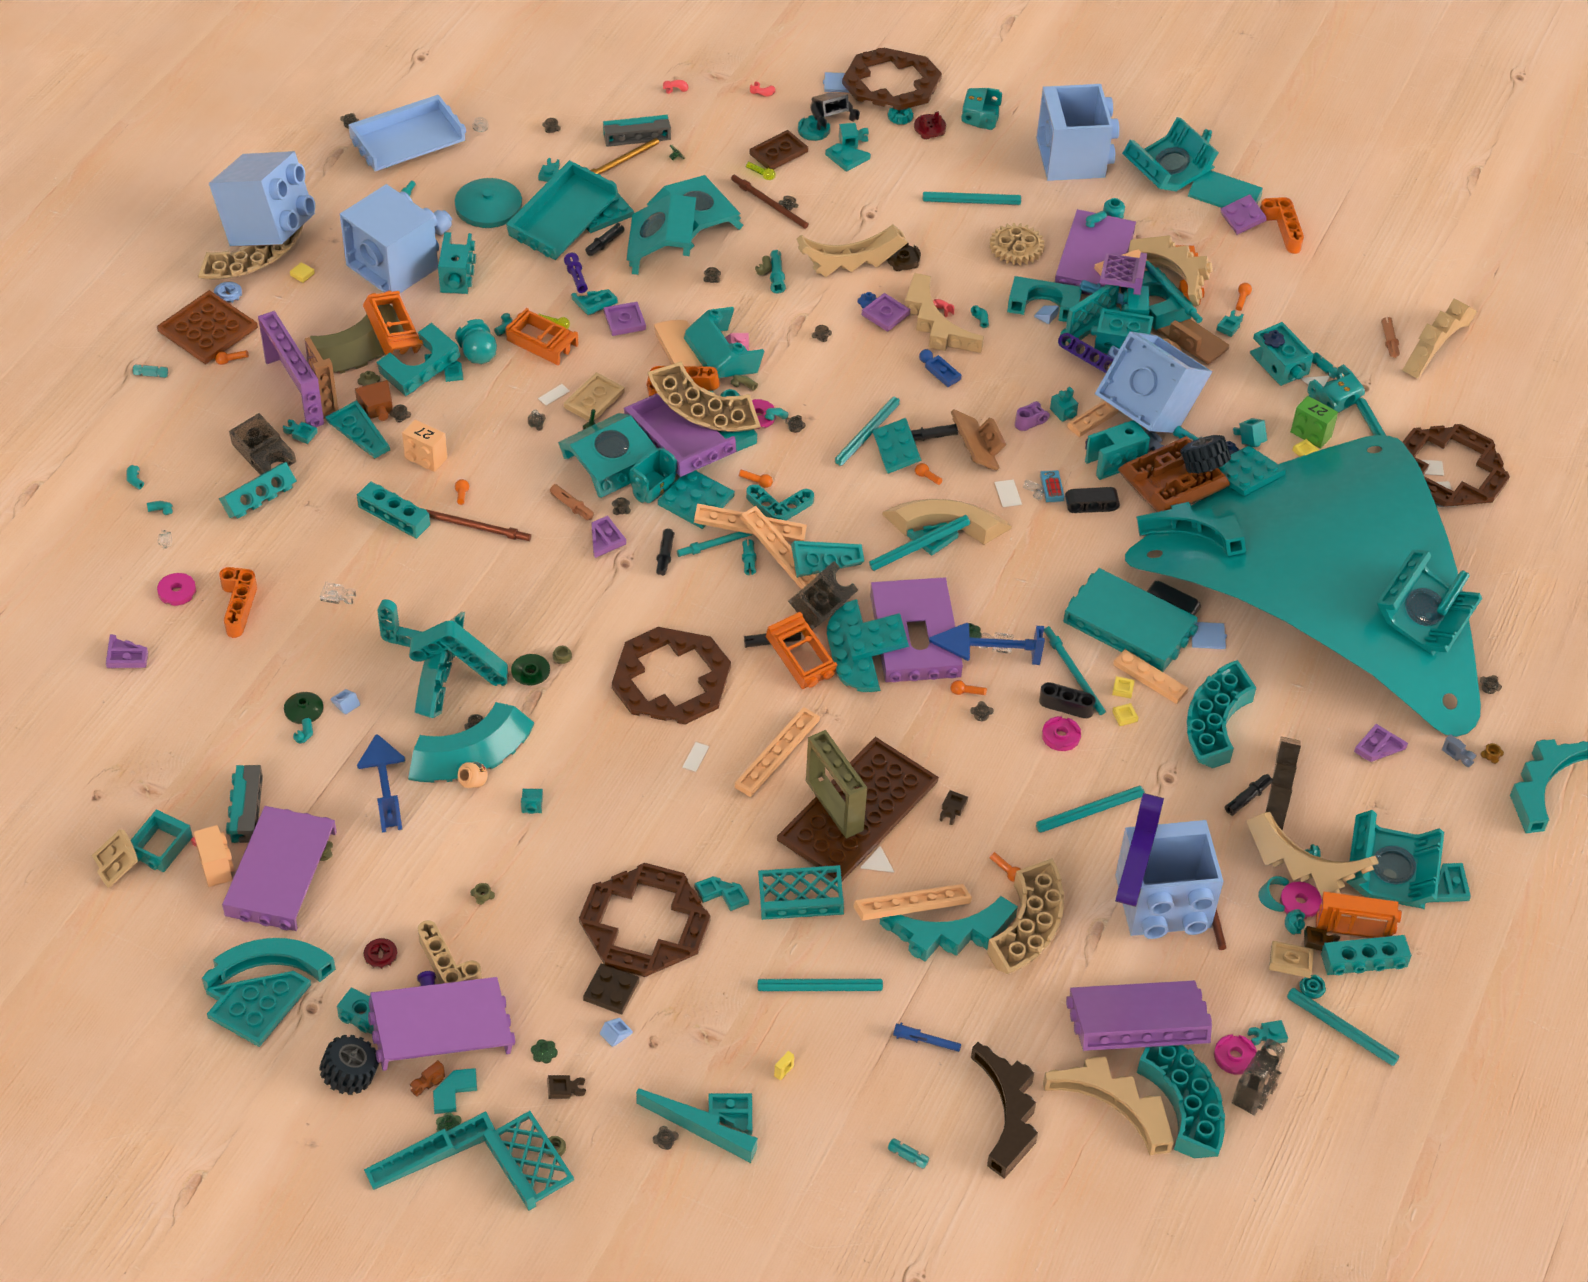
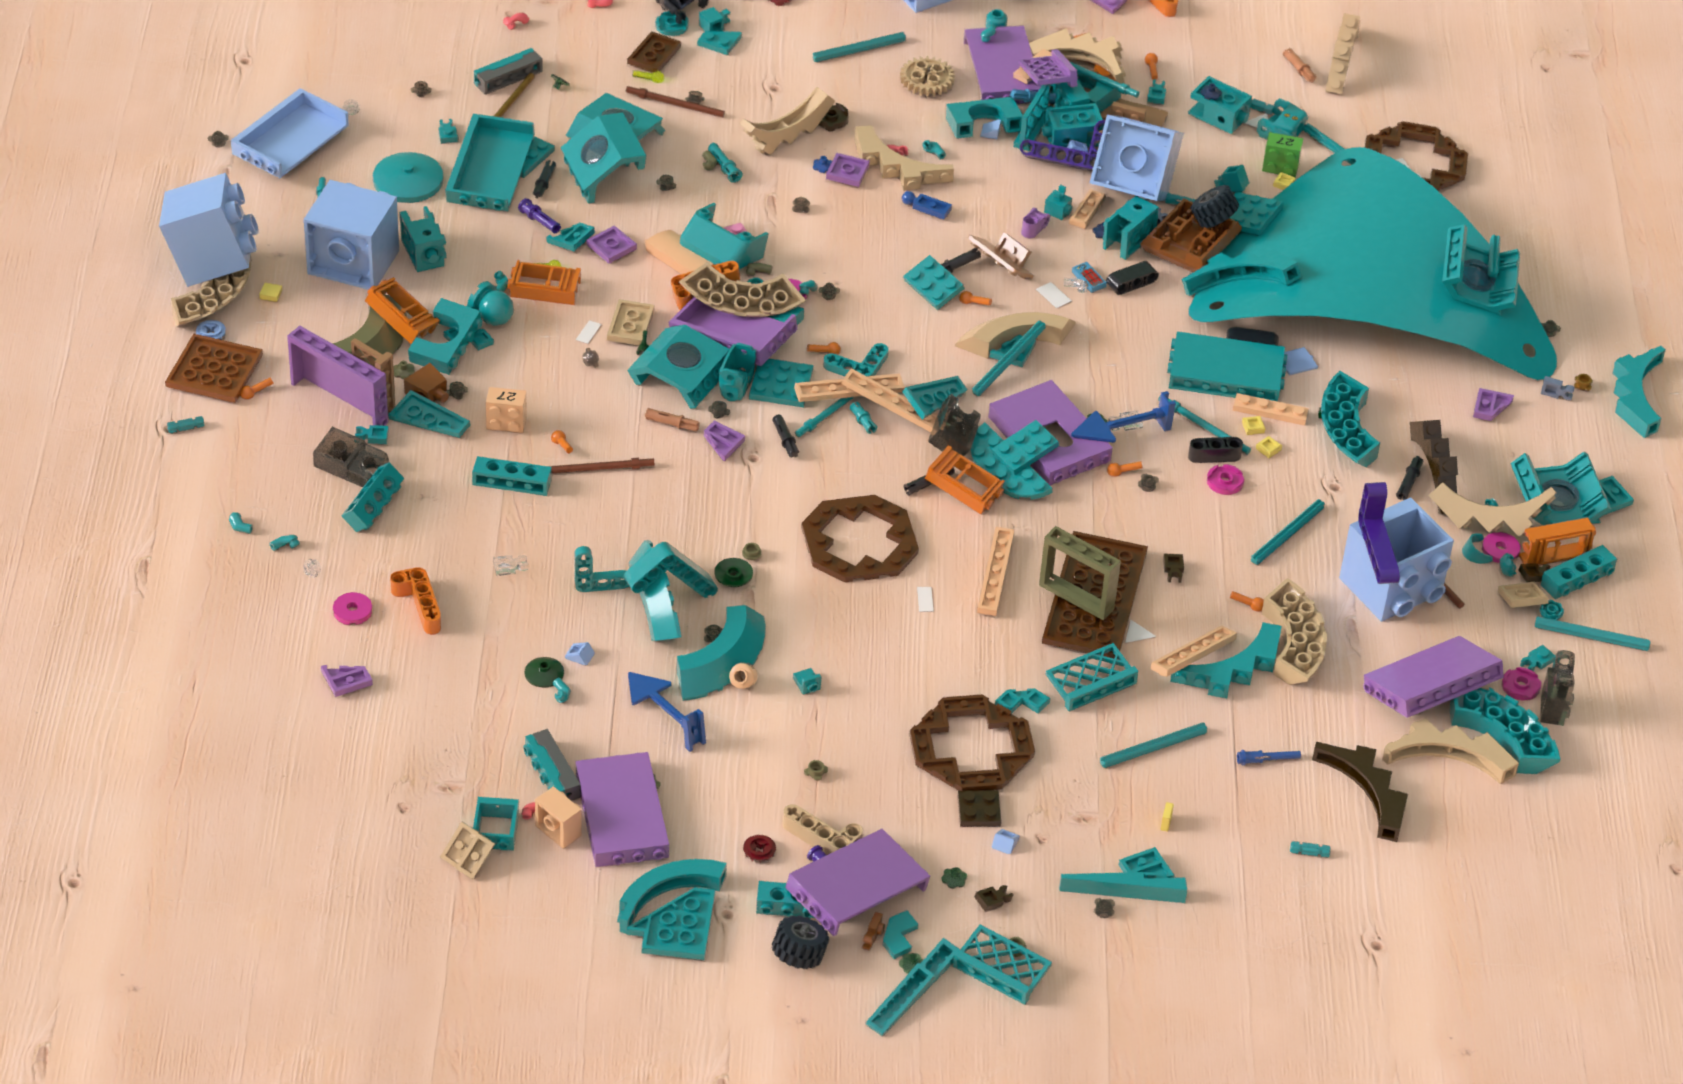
camera: 25 degrees left, 5 degrees down
(867, 431) = (897, 278): teal axle -> none

